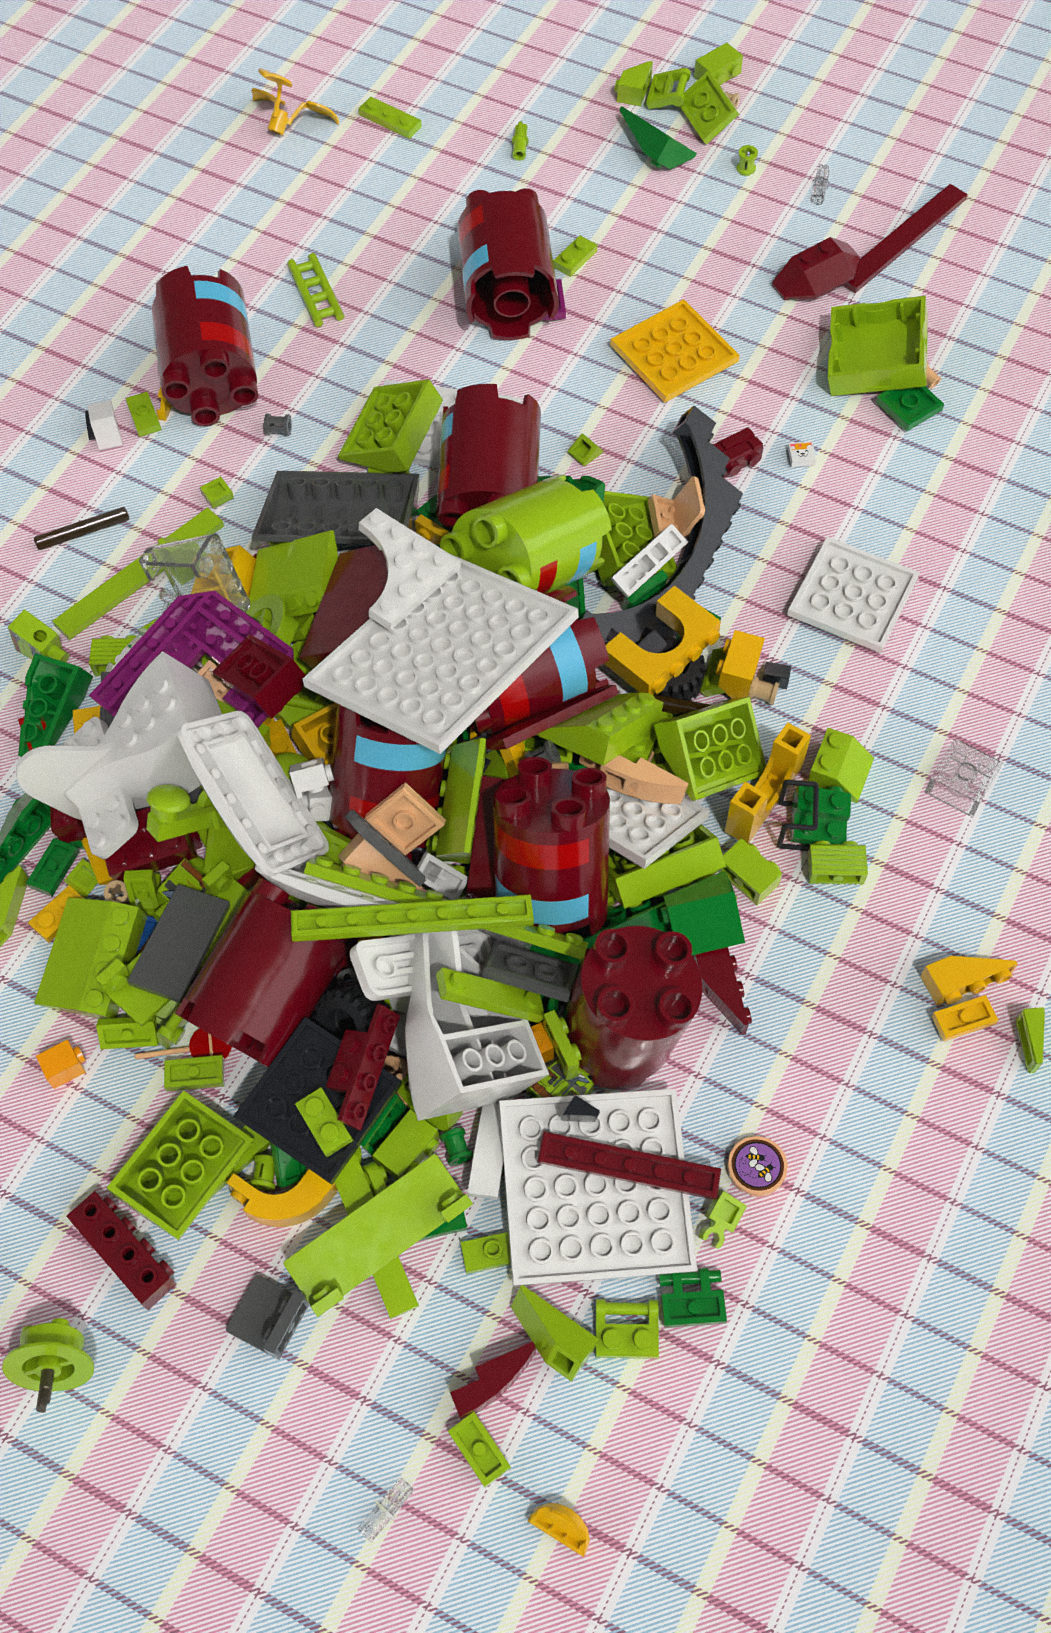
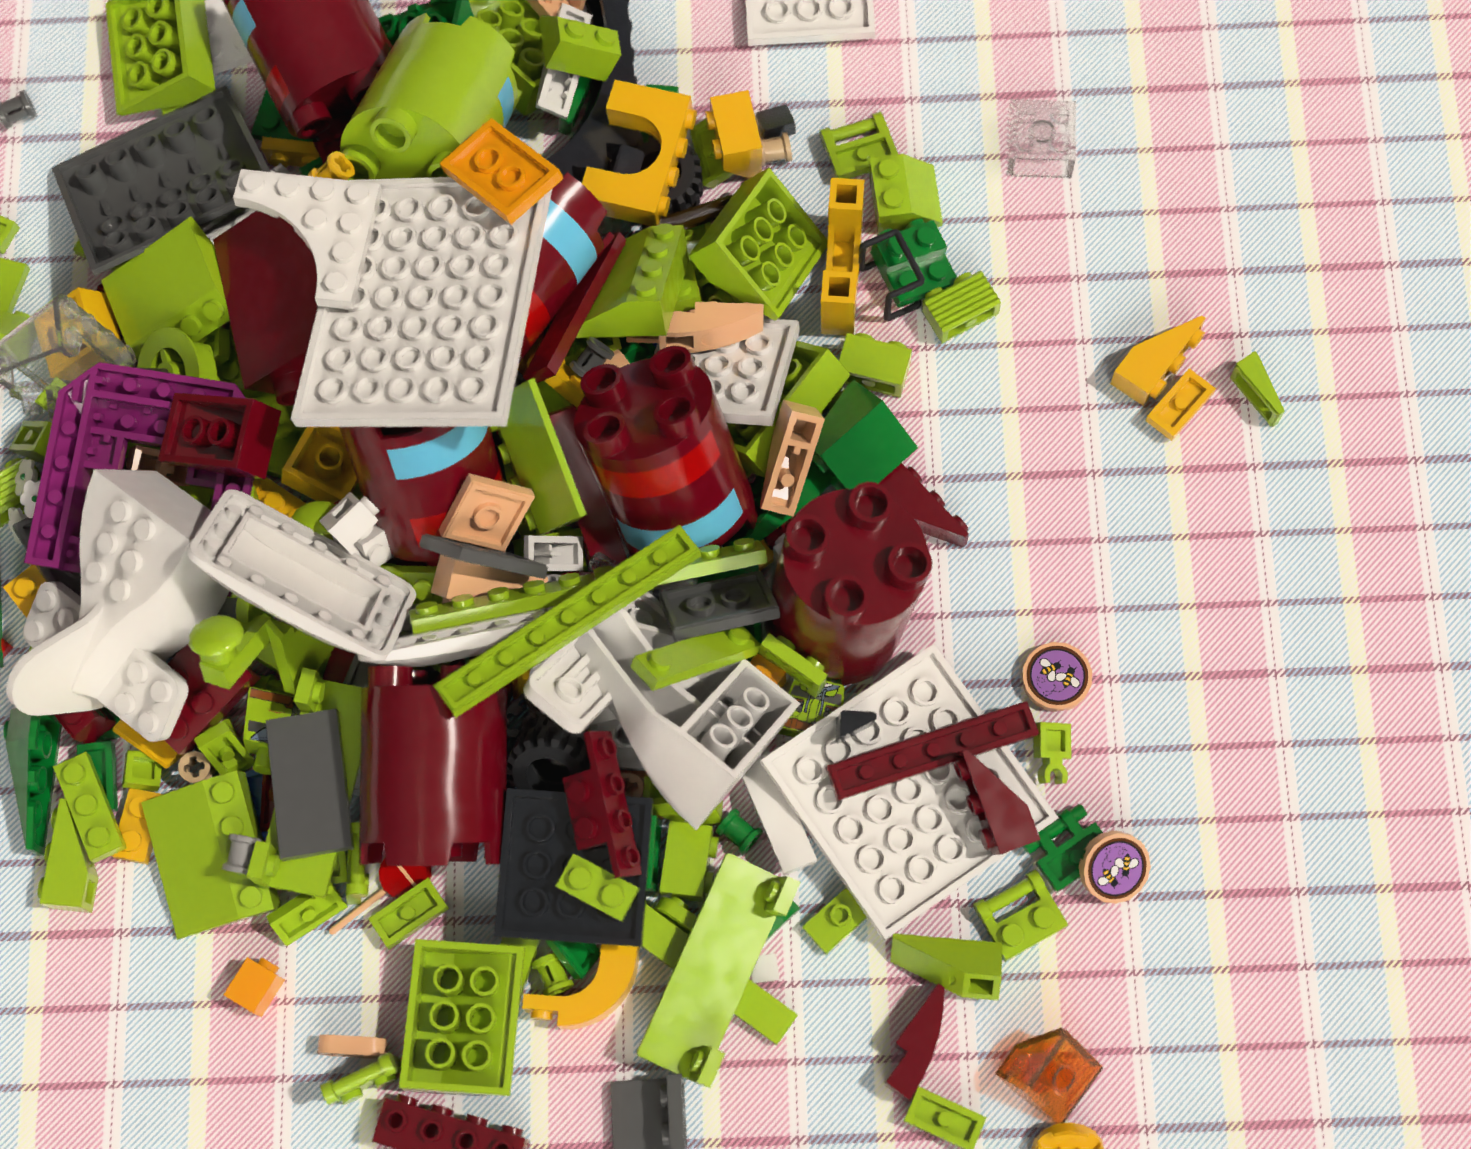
camera: 25 degrees left, 10 degrees up
(34, 882) = (89, 807): none -> lime plate
(77, 1169) = (350, 1086): none -> lime plate
(98, 1143) = (351, 1046): none -> light nougat beam
(102, 961) = (240, 853): none -> light grey bush
(416, 1257) = (766, 969): none -> white sticker
(441, 538) = (335, 168): none -> yellow bush
(545, 590) = (501, 171): none -> light orange plate
(579, 1462) = (1050, 1073): none -> clear orange slope
(647, 895) = (790, 456): none -> light nougat slope
(653, 1239) = (1002, 814): none -> dark red slope
(663, 554) = (579, 47): none -> lime slope
(718, 1332) = (1114, 866): none -> tile
(817, 722) = (854, 157): none -> lime plate

